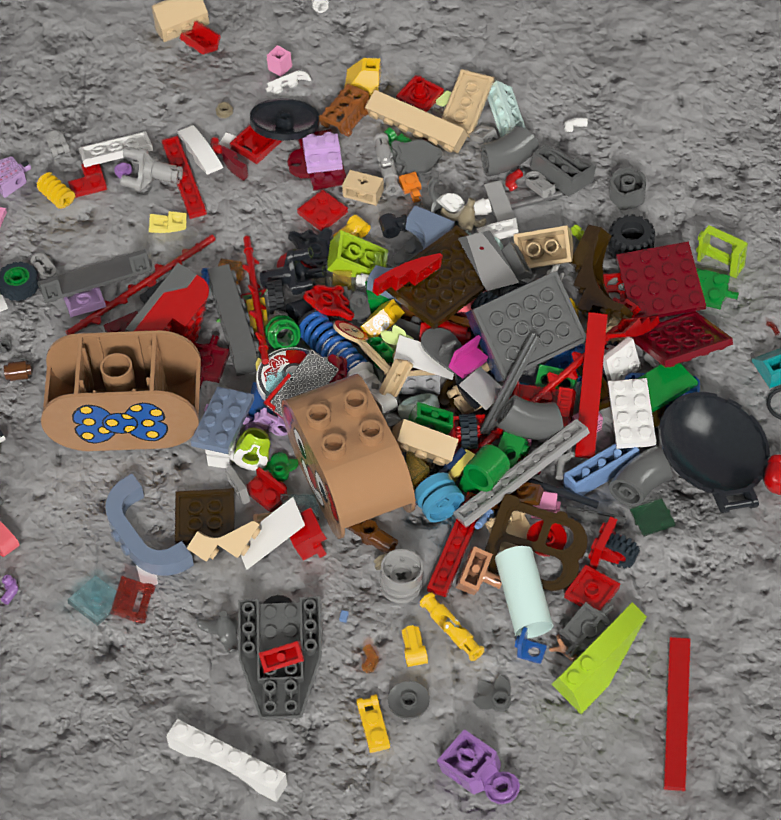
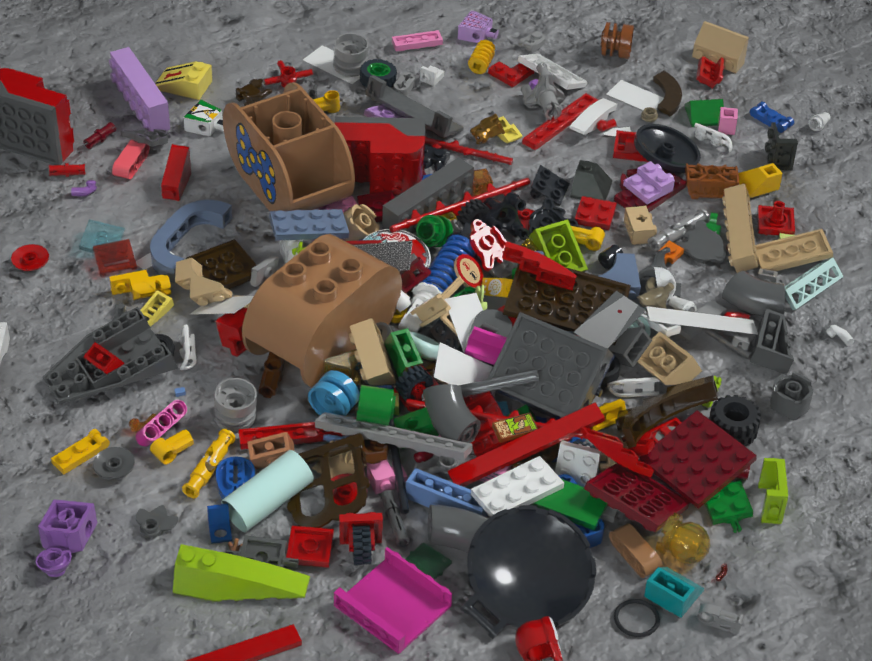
camera: 55 degrees right, 10 degrees down
(29, 341) = (329, 102): none -> yellow piece
(47, 241) = (431, 75): none -> white bracket
(51, 501) = (176, 173): none -> red slope
(83, 663) = (30, 257): none -> red dish
(115, 80) = (617, 40): none -> dark orange wheel
(163, 231) = (488, 128): none -> pearl gold animal
(187, 591) = (139, 284): none -> yellow plate
(188, 107) = (634, 95): none -> white sticker
(212, 82) = (672, 92): none -> dark brown tile
(217, 581) = (157, 297): none -> light yellow slope
(227, 379) = (360, 222): none -> tan brick
(233, 164) = (597, 140): dark red slope -> none
(249, 70) = (704, 111): none -> green slope
(266, 226) = (548, 185): none -> black hinge
(284, 195) = (590, 181): none -> pearl dark grey slope
(288, 30) = (768, 115): none -> blue plate
(299, 588) = (185, 352): none -> white piece
(339, 47) = (780, 151): none -> pearl dark grey bracket
(383, 643) = (168, 418): none -> dark pink beam
(488, 625) = (225, 474): none -> blue piece
(512, 202) = (701, 320): none -> white sticker
(571, 382) = (514, 427): none -> tile
(682, 556) = (394, 601): none -> dark pink panel
(724, 370) = (635, 550): none -> medium nougat beam
(743, 329) = (686, 541): none -> clear yellow tile

